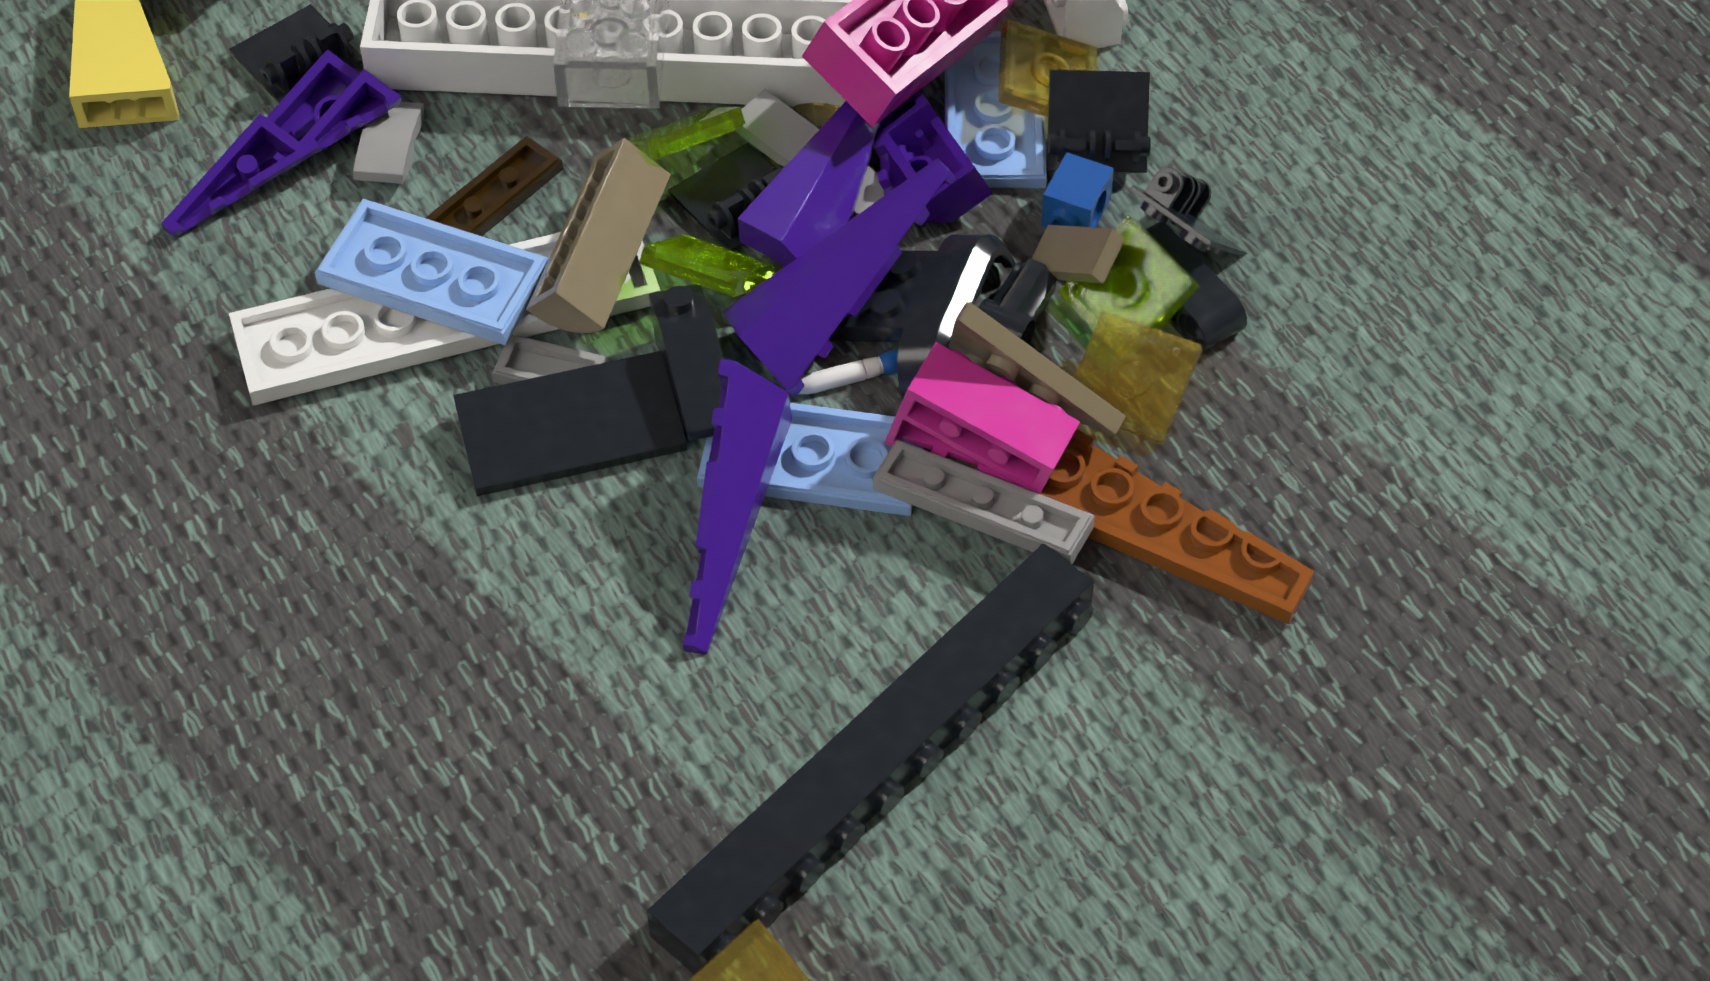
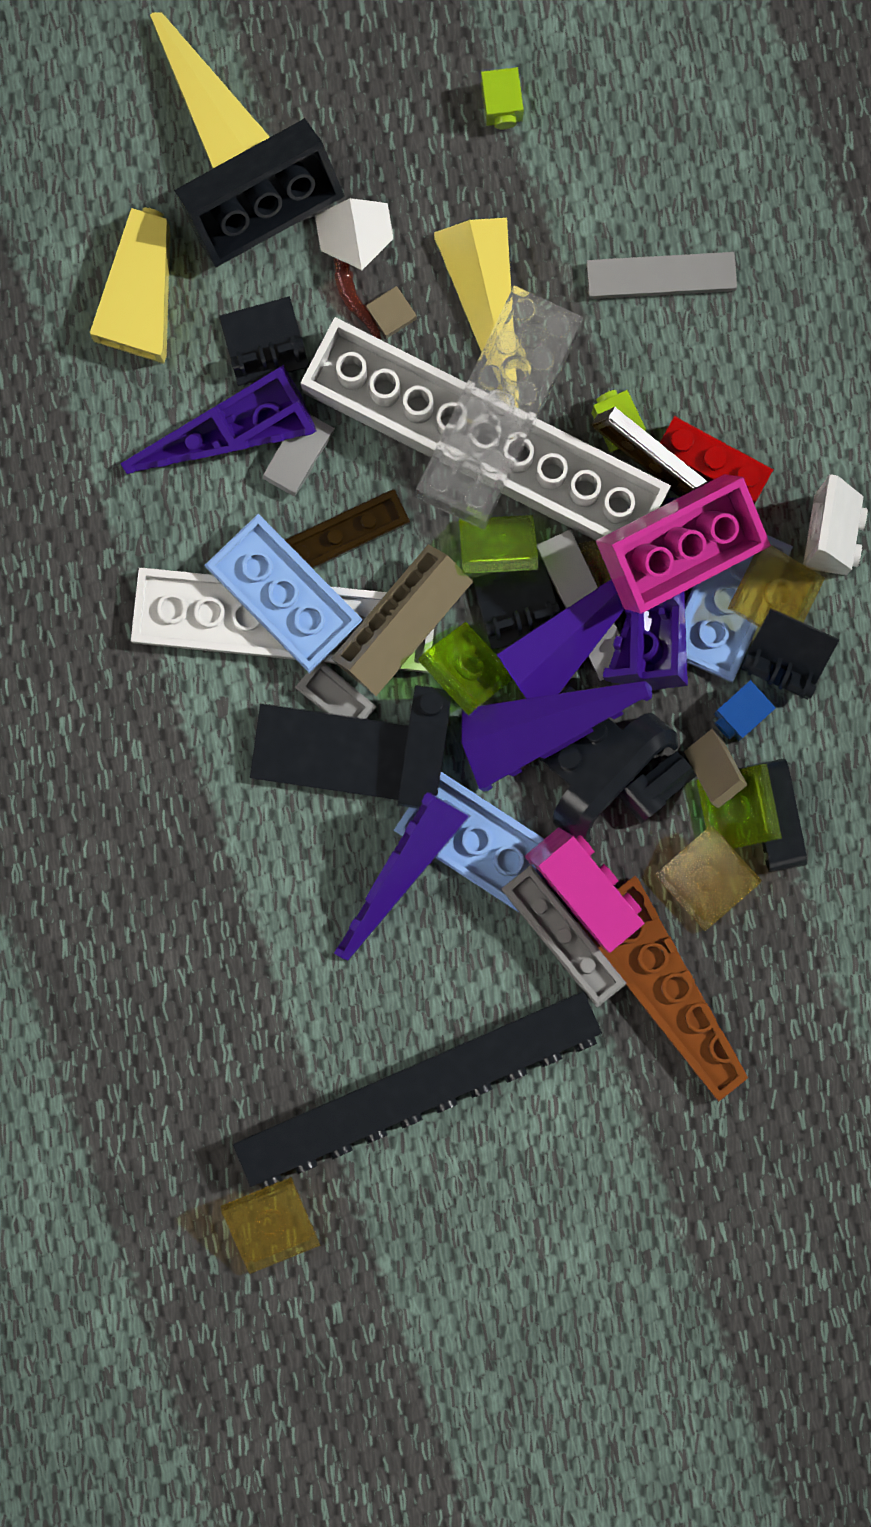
camera: 25 degrees right, 30 degrees up
(850, 373) = (531, 786): white piece -> none
(1008, 356) = (631, 862): dark tan wing -> none
(1181, 200) = (806, 768): black hinge -> none

